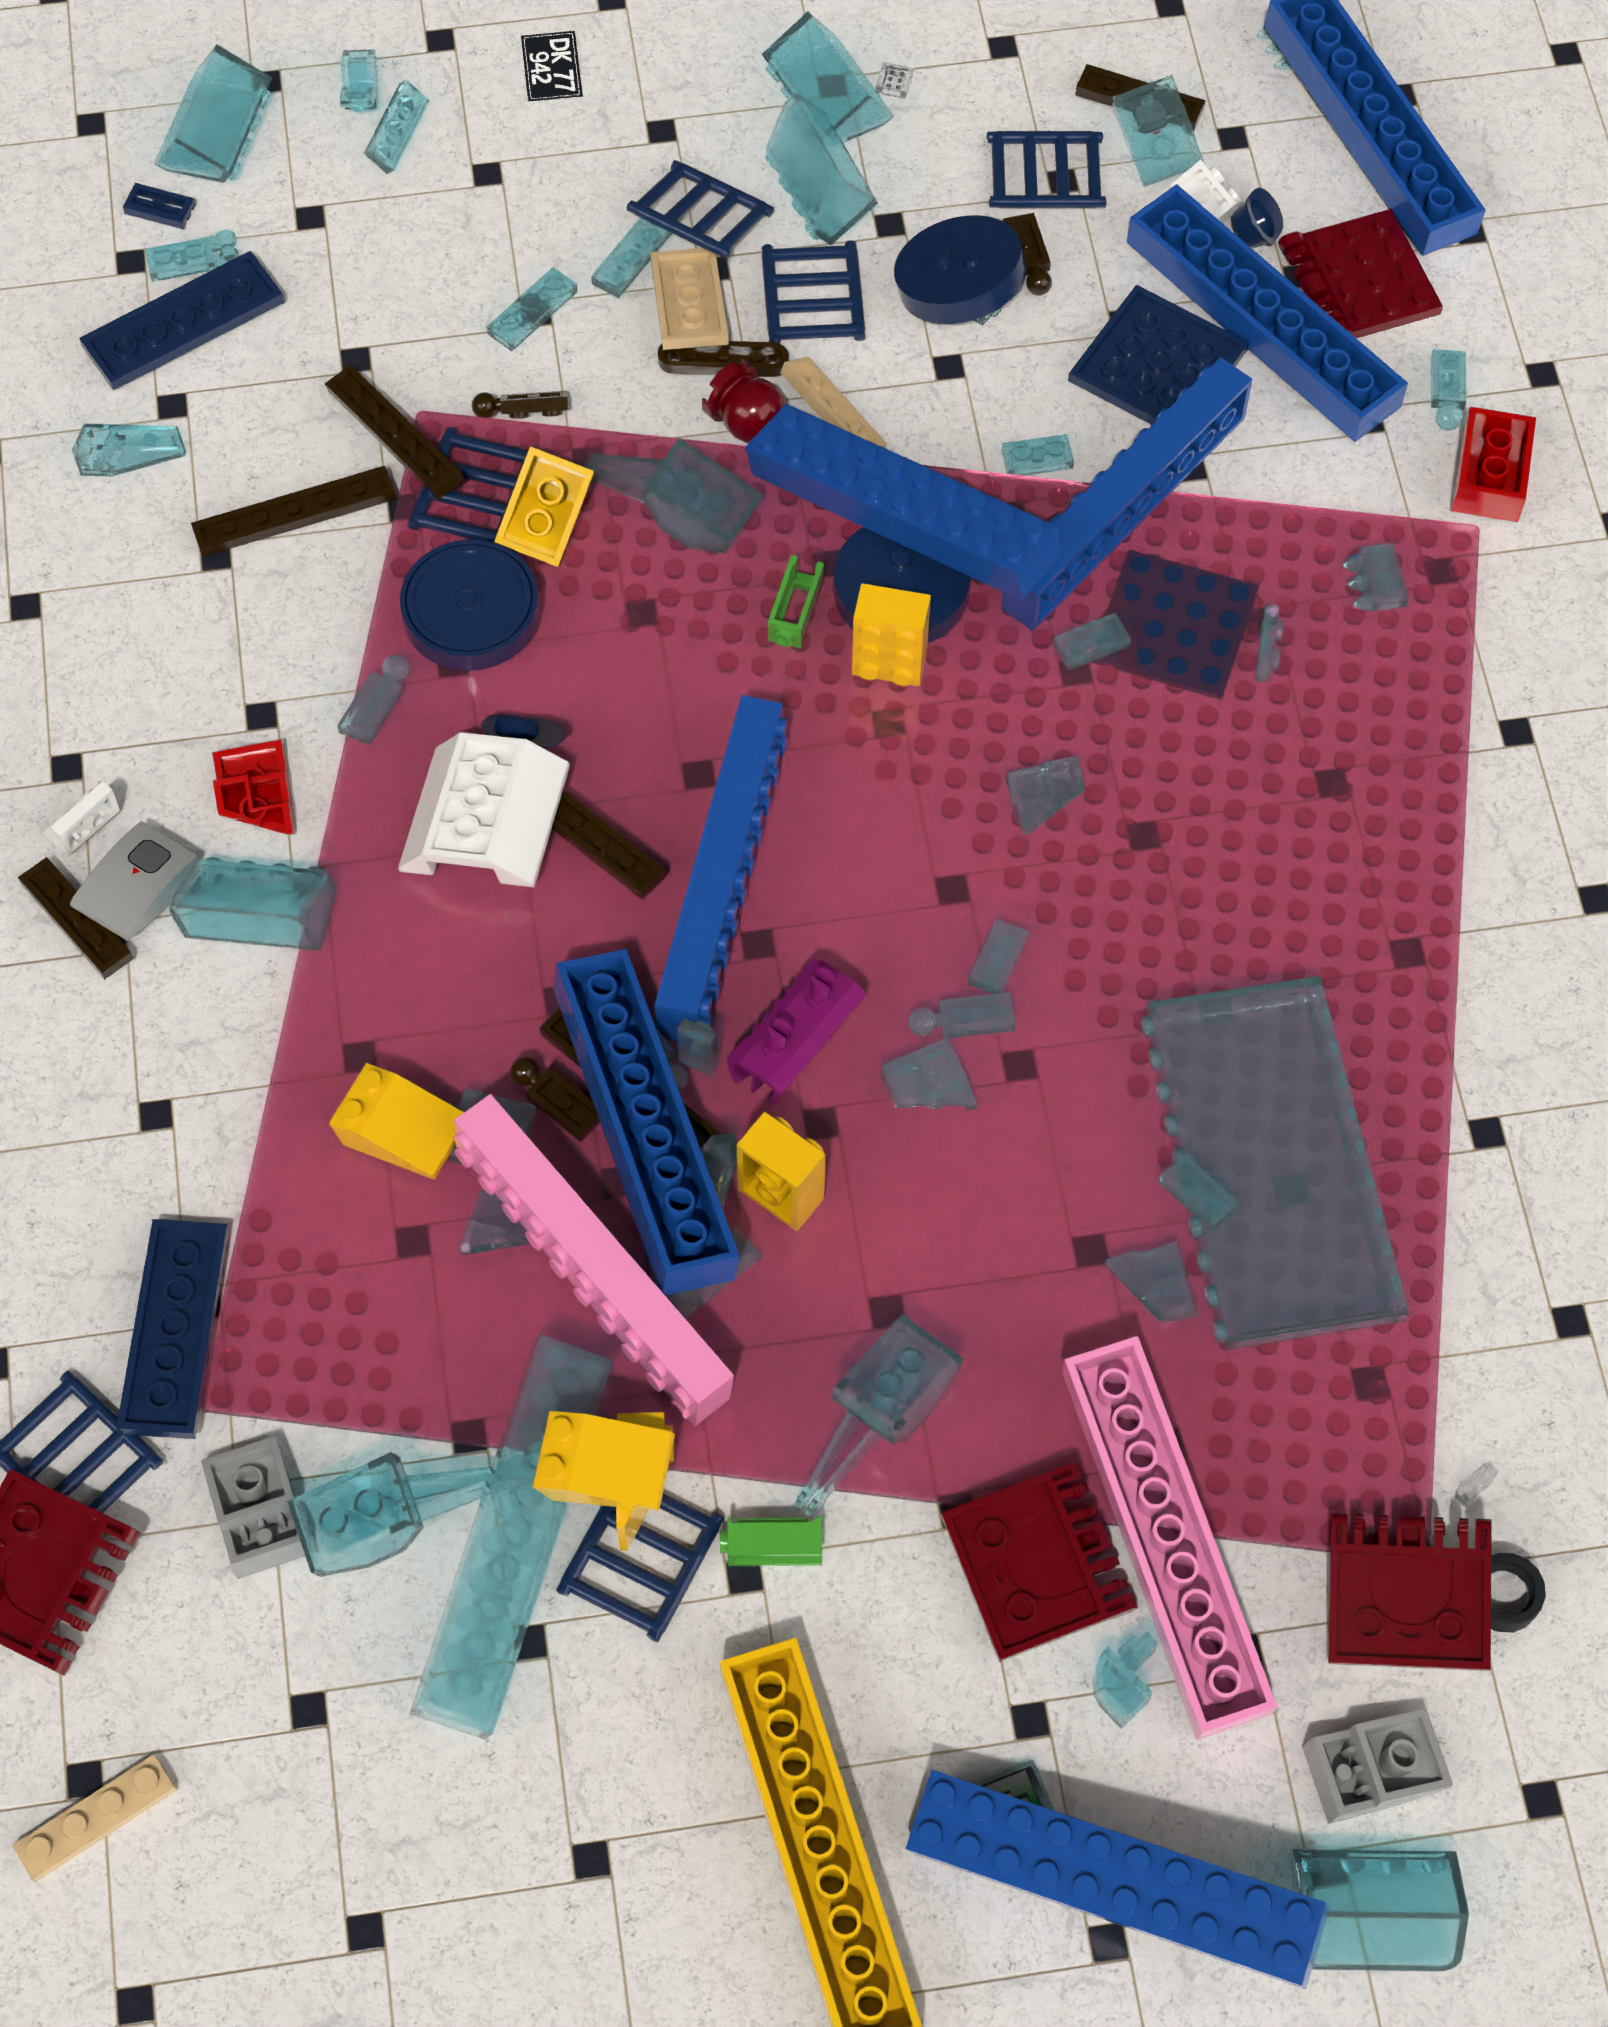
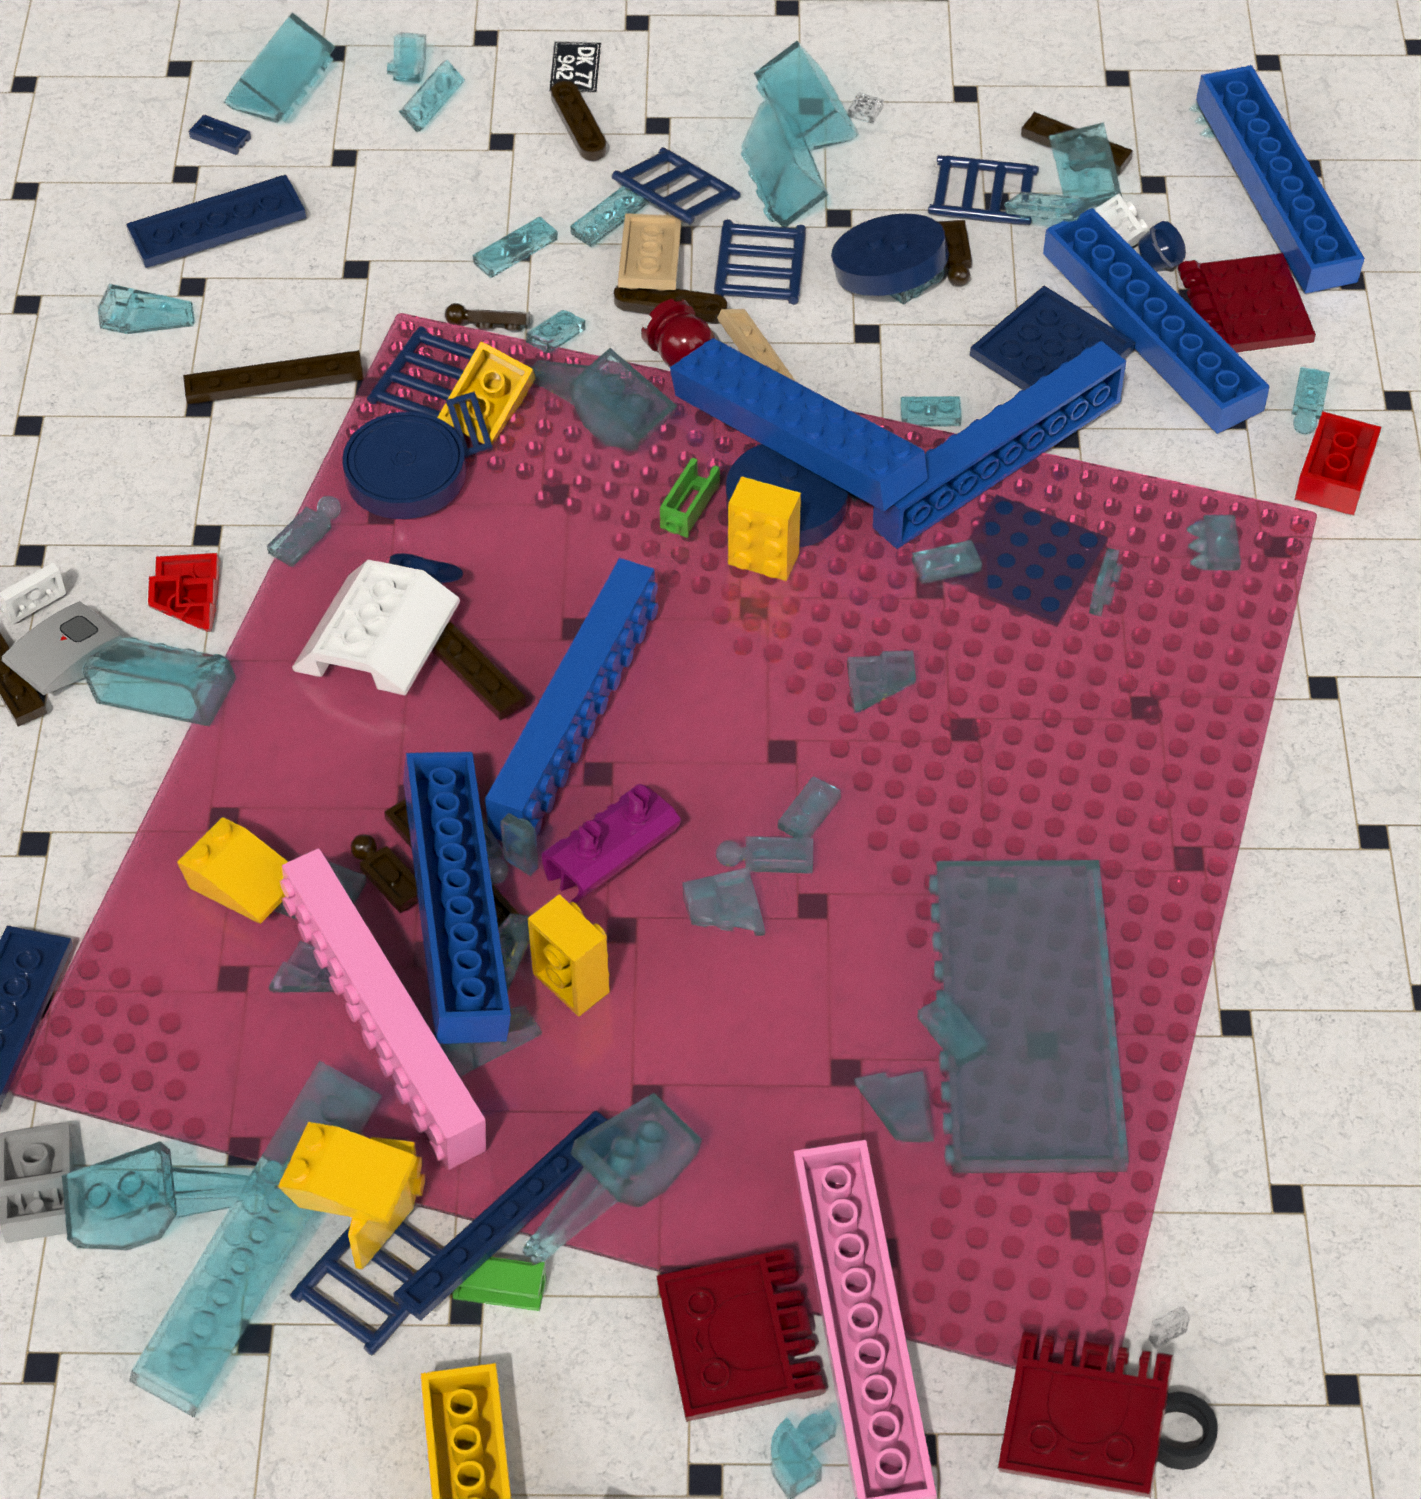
camera: 10 degrees right, 10 degrees down
(191, 256) = (235, 174): clear light blue plate -> none
(394, 432) = (373, 324): dark brown plate -> none
(519, 518) = (476, 449): none -> dark blue tile
(571, 137) = (578, 120): none -> dark brown plate
(601, 411) = (555, 331): none -> clear light blue plate
(766, 1476) = (494, 1226): none -> dark blue tile
(1126, 187) = (1047, 206): none -> clear light blue plate

